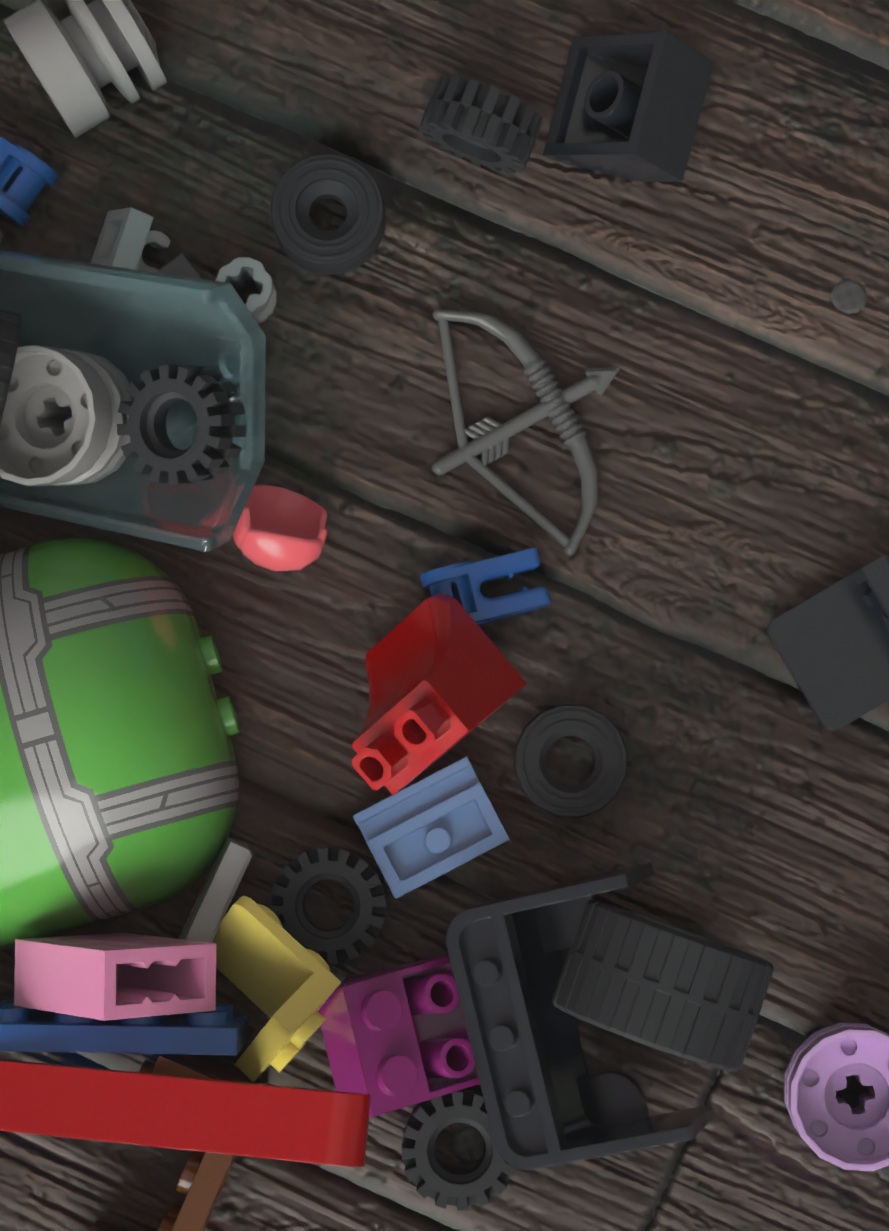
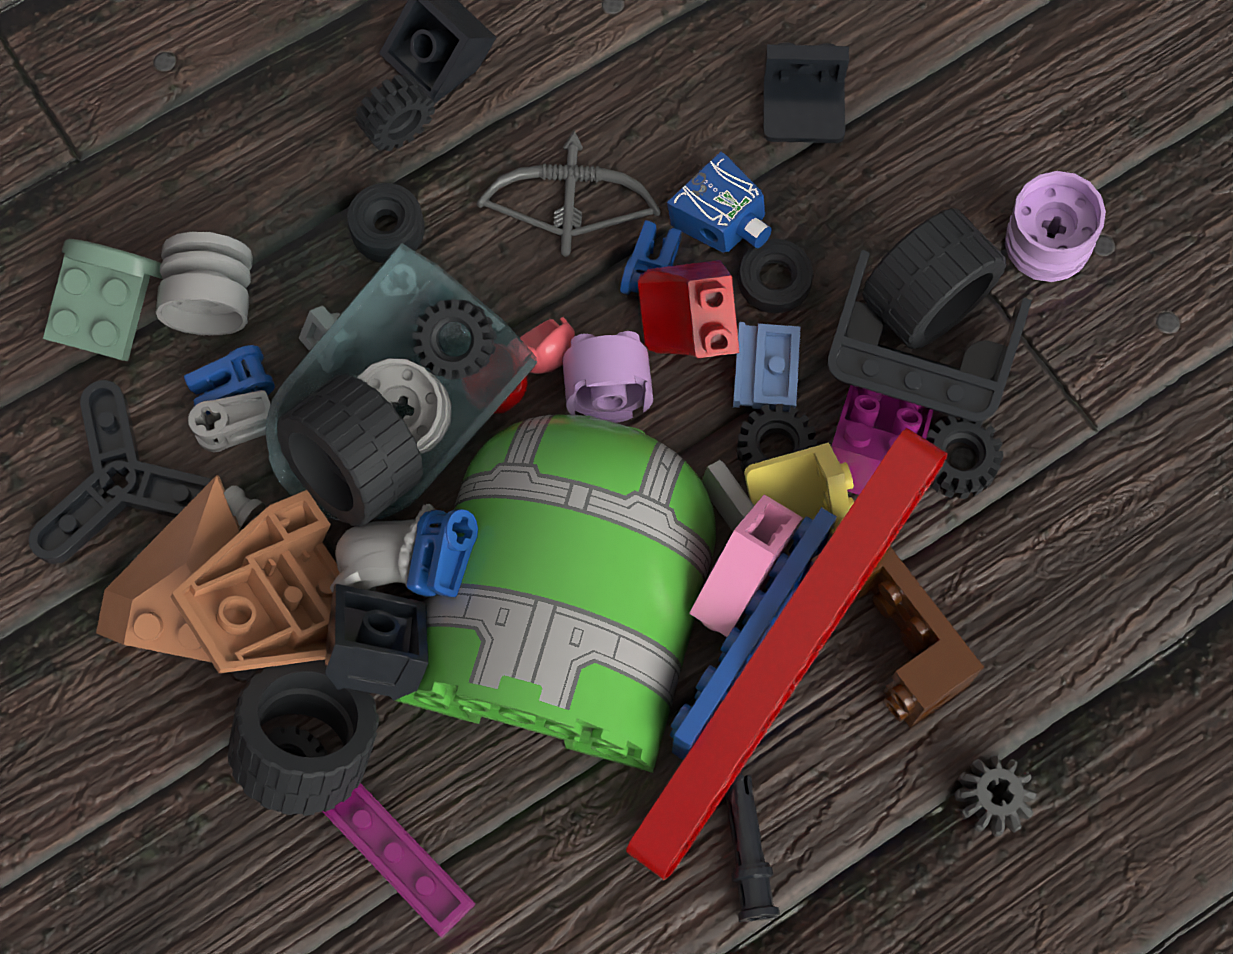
camera: 60 degrees left, 15 degrees down
(277, 638) = (607, 376): none -> lavender brick
(617, 635) = (720, 207): none -> blue torso

